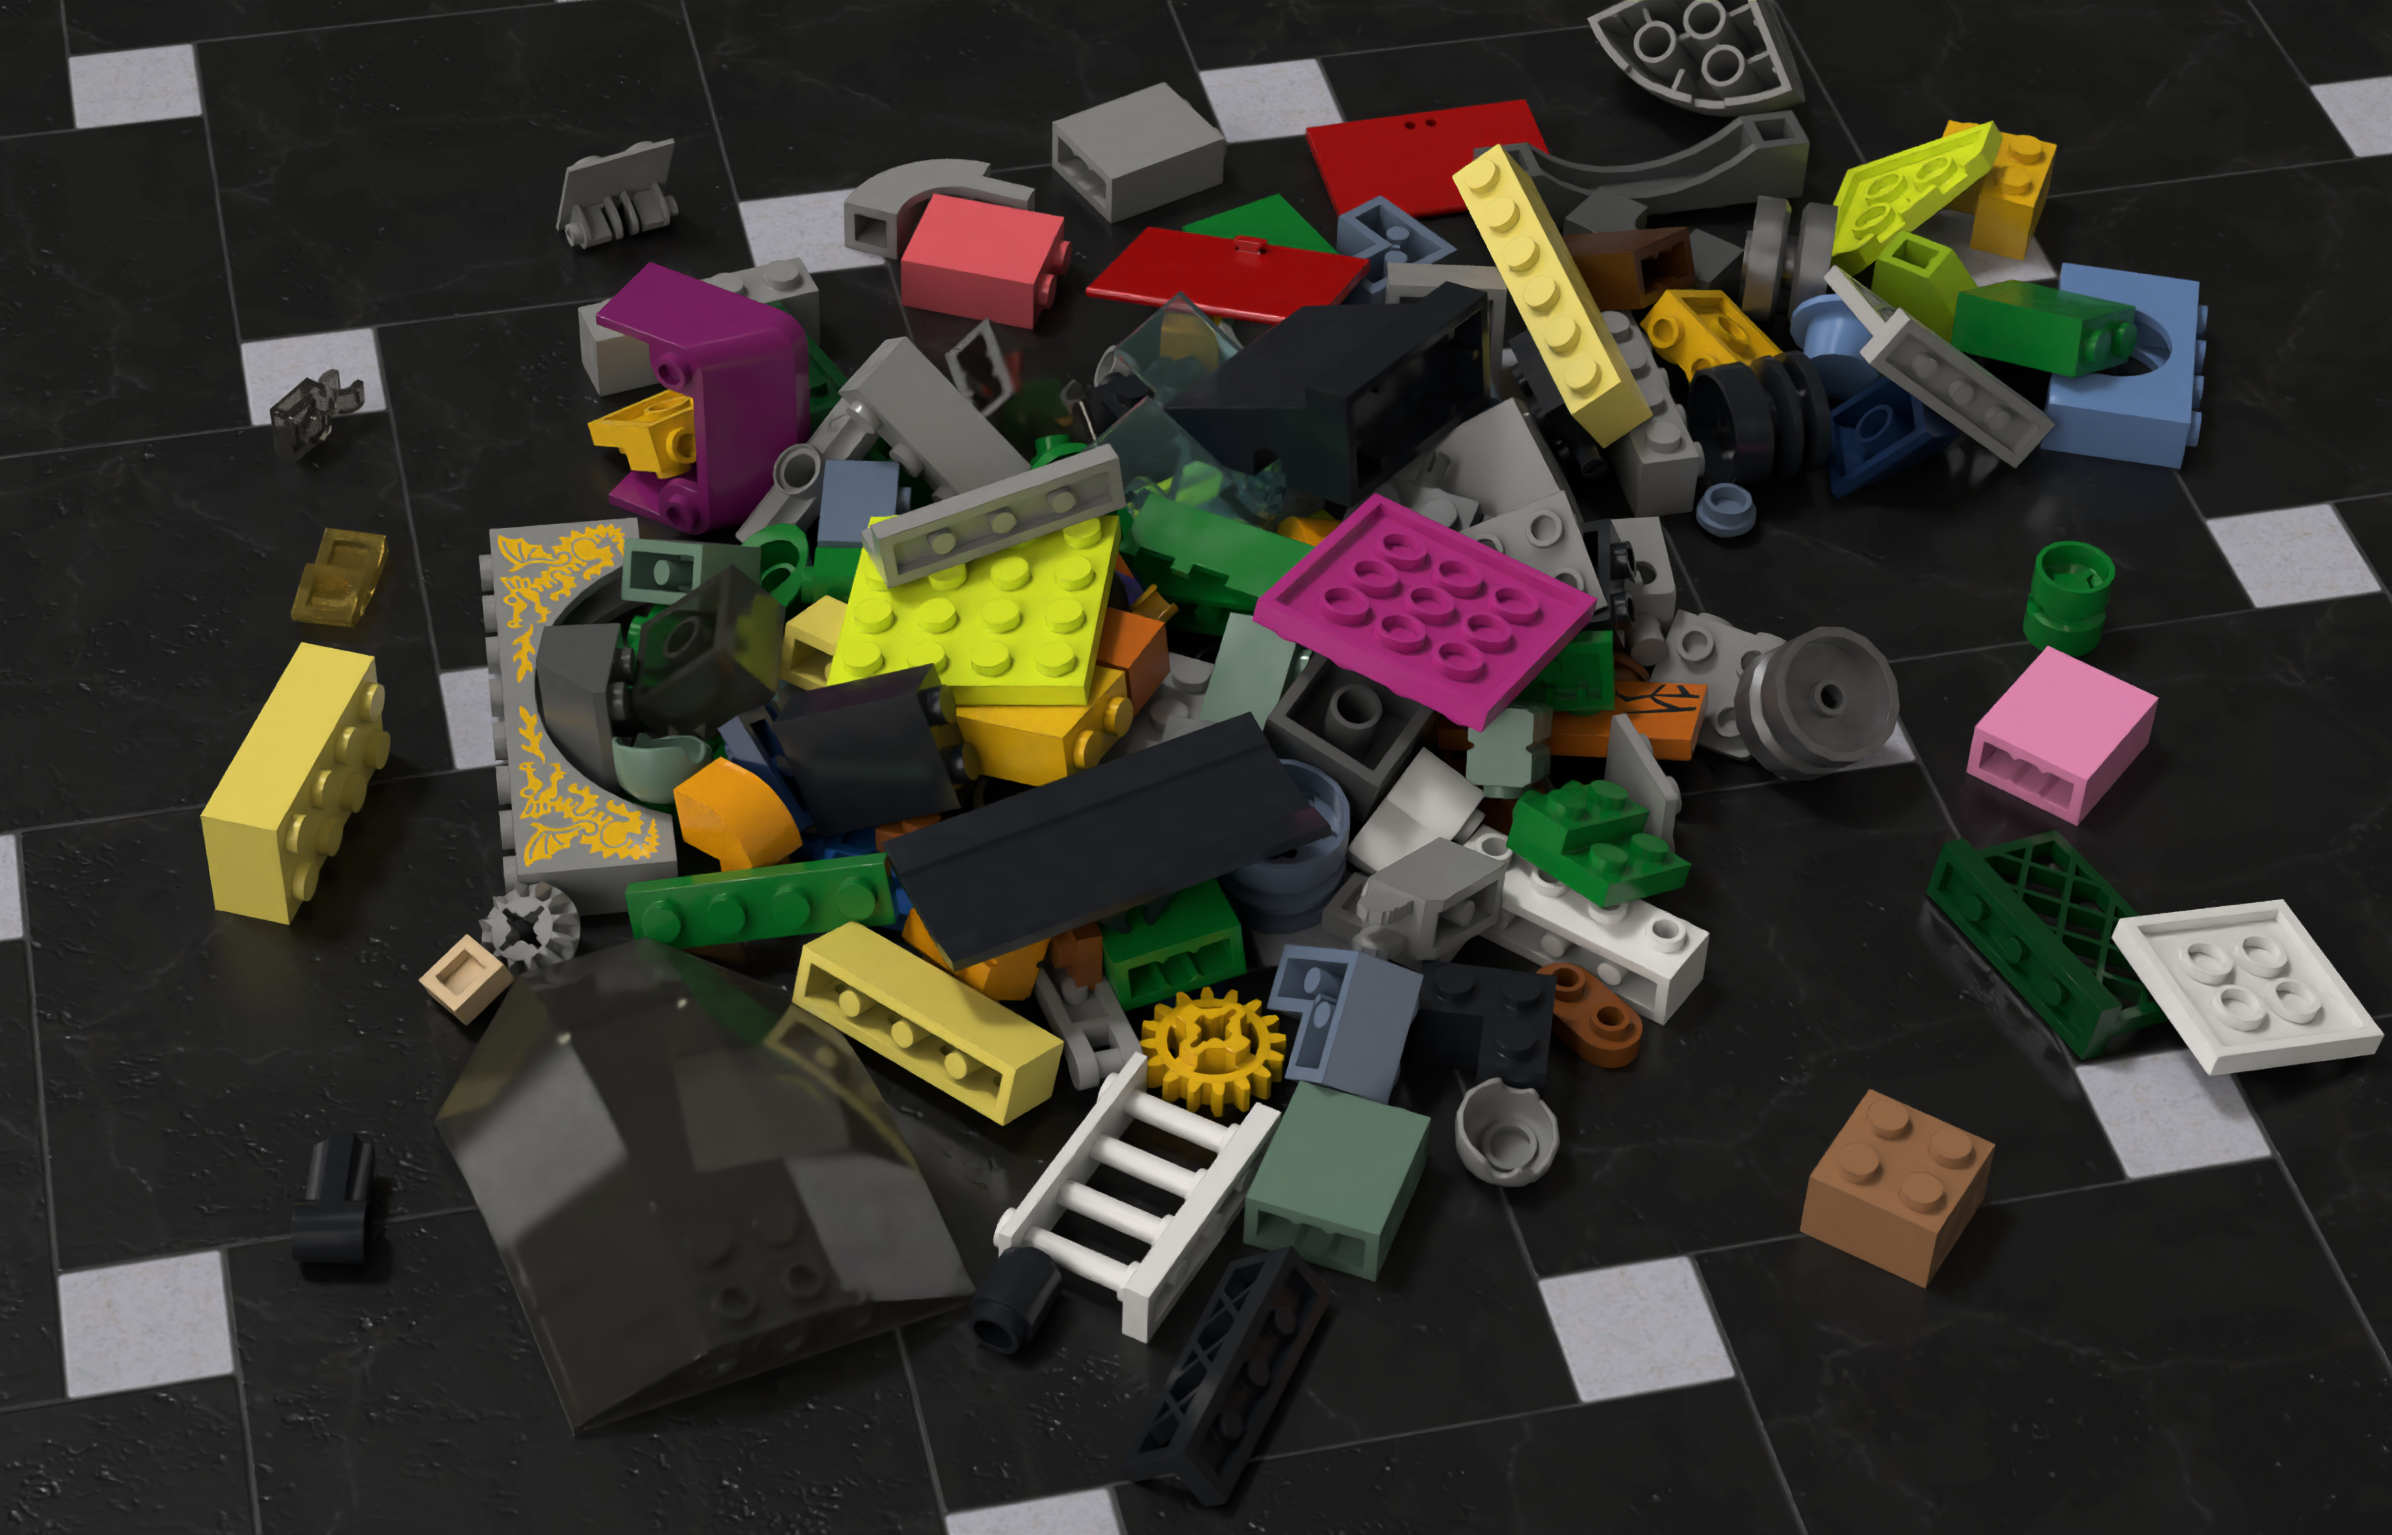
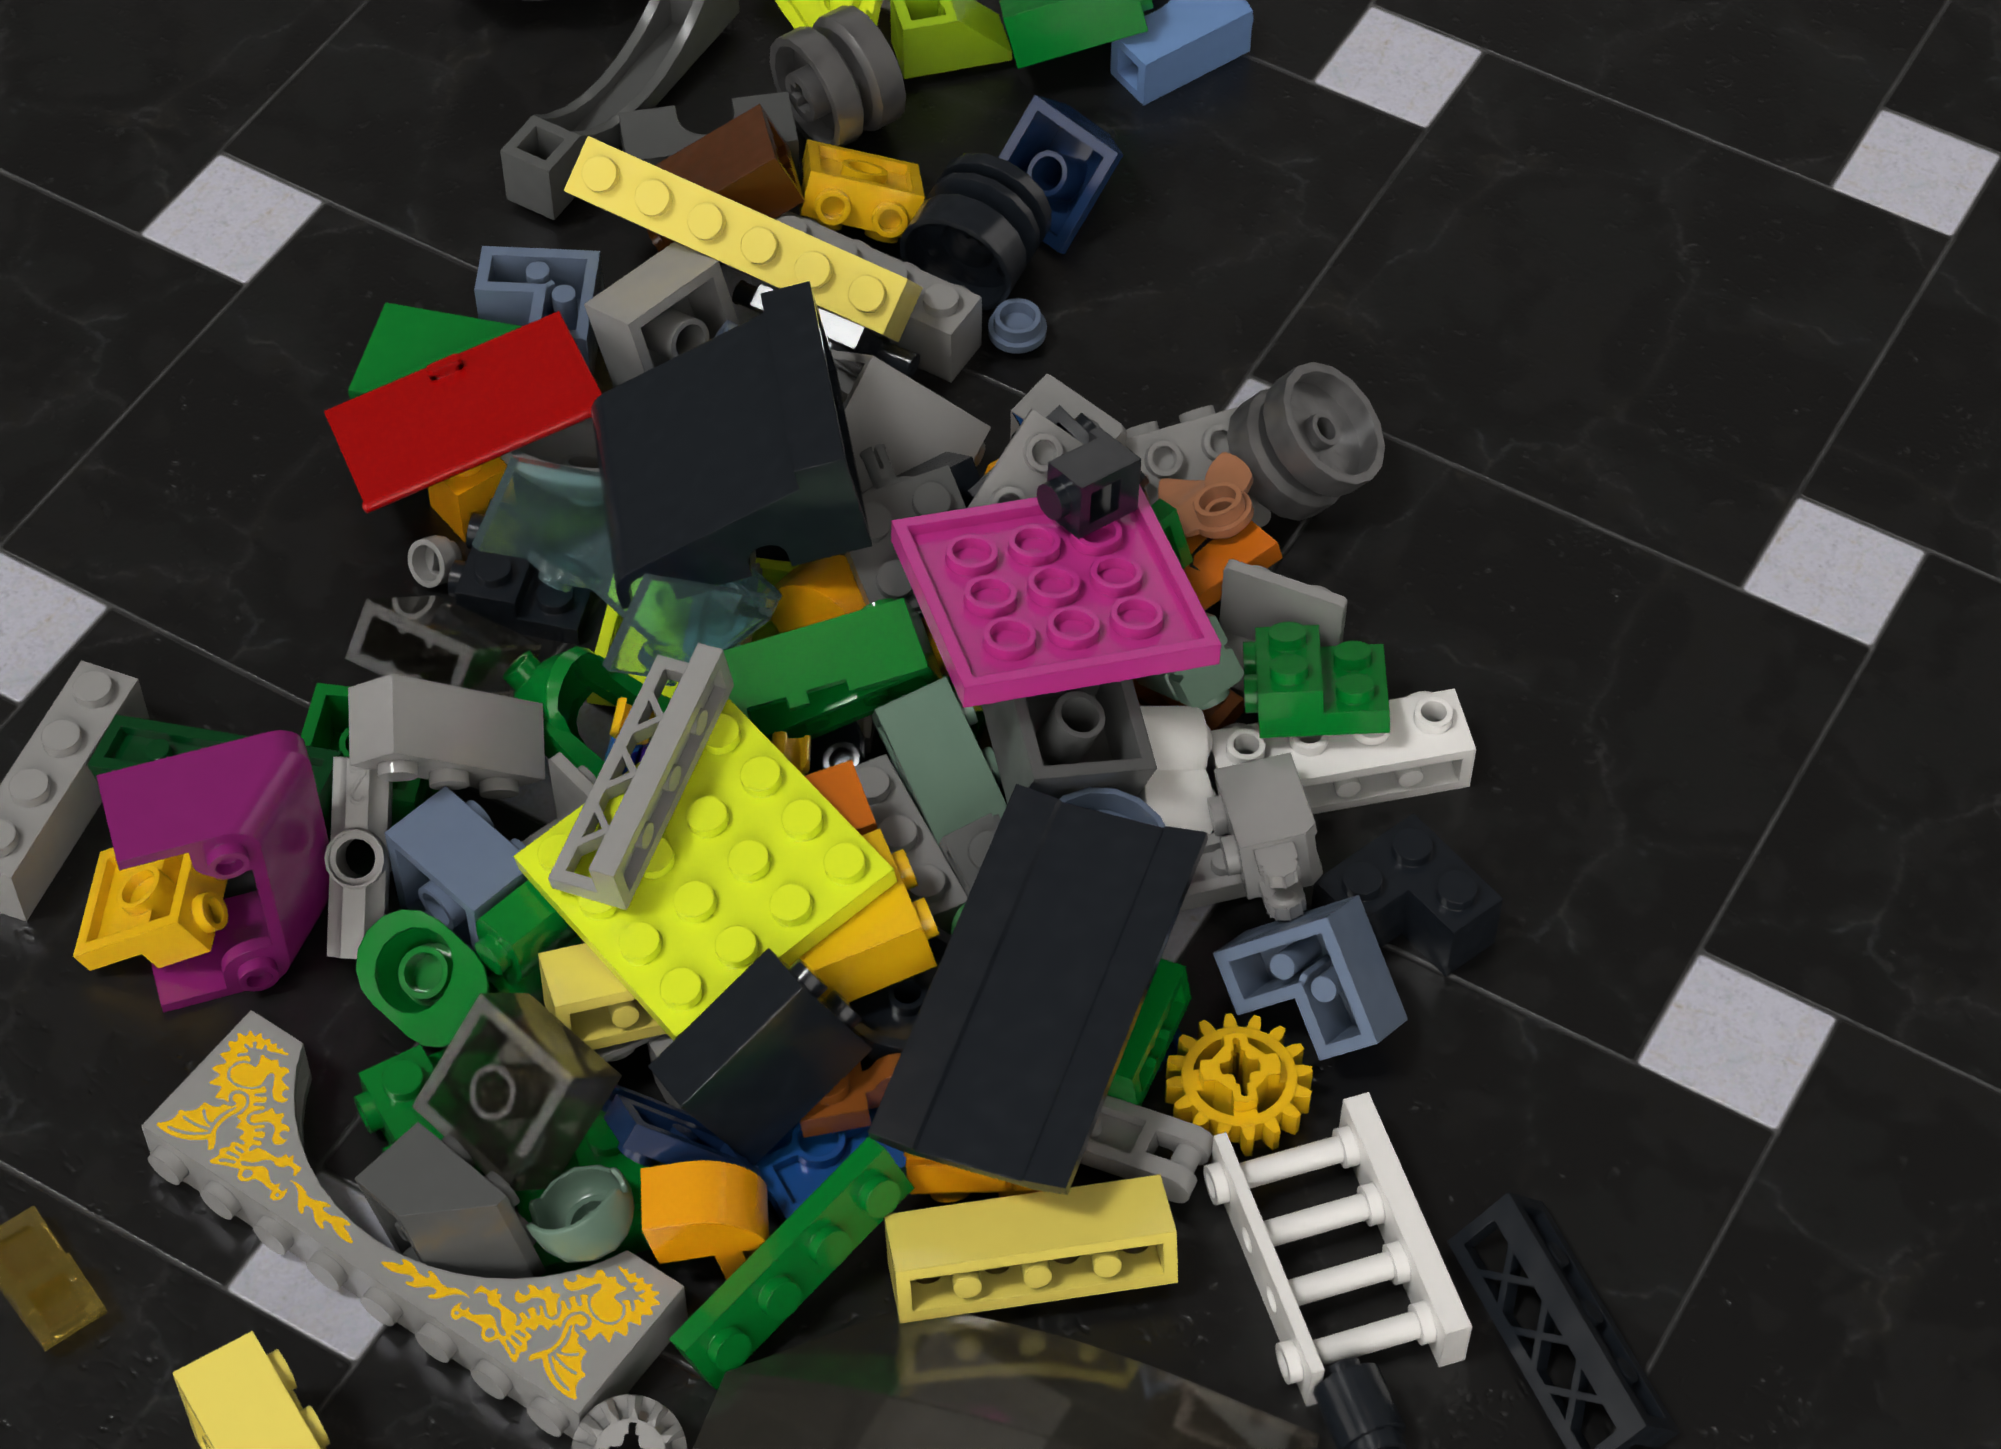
camera: 45 degrees left, 10 degrees up
(671, 569) = (371, 1024): sand green brick -> none
(889, 206) = (97, 511): light grey arch -> none
(984, 261) = (209, 542): coral brick -> none
(1138, 152) = (205, 347): light grey brick -> none
(1337, 1180) = (1449, 1107): sand green brick -> none
(1414, 154) = (434, 198): red container -> none
(1505, 1134) = (1509, 969): light grey hair -> none
(1535, 560) = (1091, 485): none -> black brick
(1583, 1014) = (1433, 809): dark orange plate -> none
(1677, 687) = (1214, 505): none -> nougat plate
(1832, 342) = (949, 119): medium blue piece -> none
(1897, 1188) = (1783, 782): medium nougat brick -> none
(1943, 375) = (1074, 96): light grey fence -> none
(2039, 956) = (1629, 518): dark green fence -> none
(2062, 735) = (1452, 332): bright pink brick -> none
(2069, 598) = (1335, 217): green wheel -> none
(2246, 987) = (1790, 437): white plate -> none

